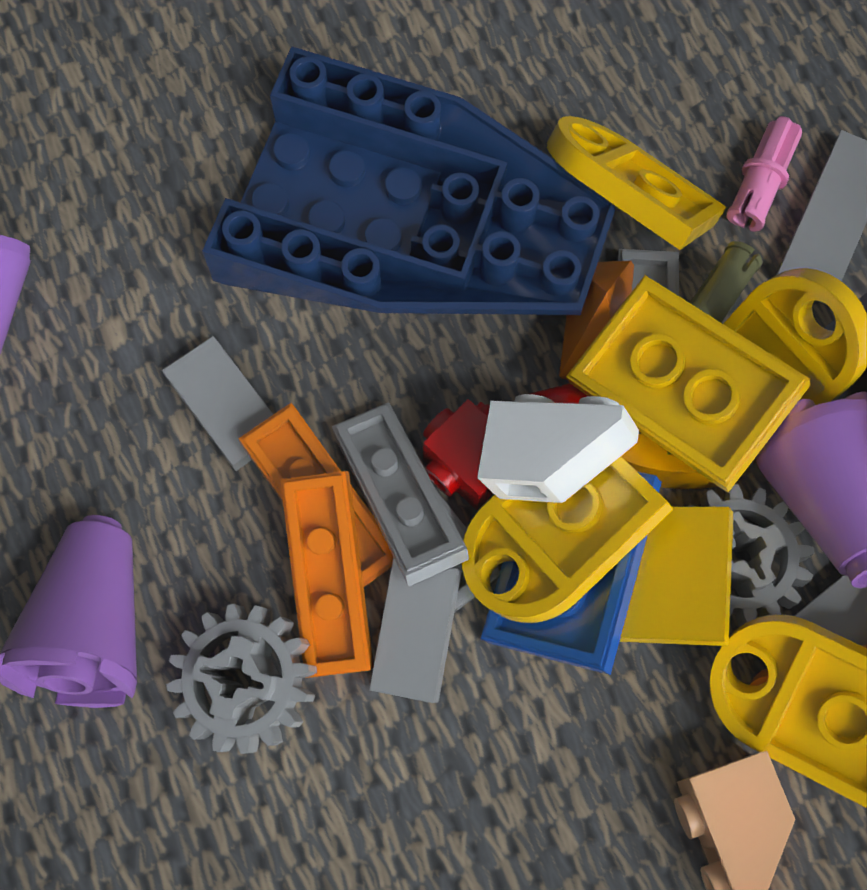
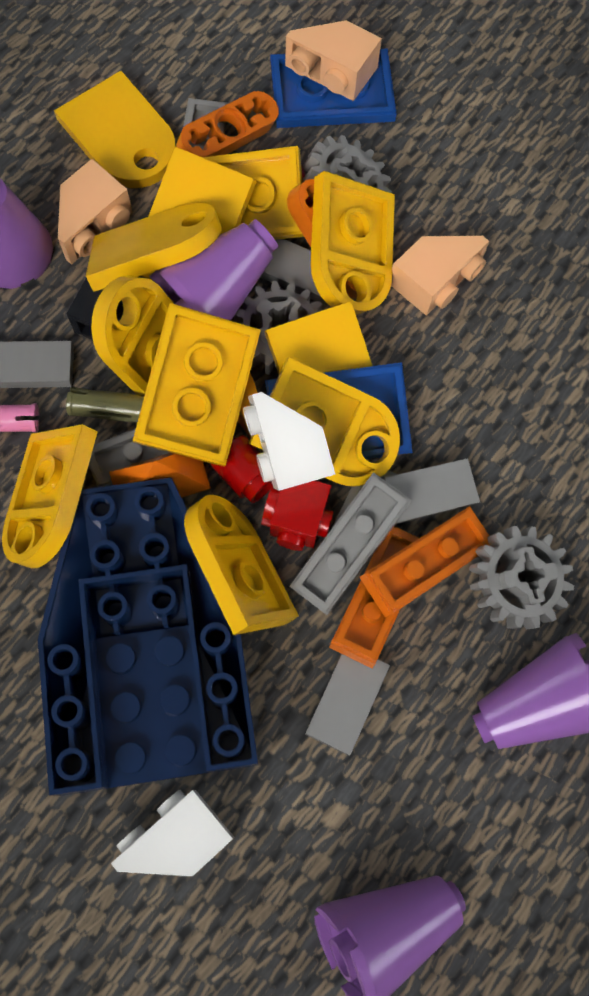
camera: 120 degrees left, 0 degrees up
(177, 158) = (177, 842): none -> white slope
(435, 339) = (237, 566): none -> yellow tile

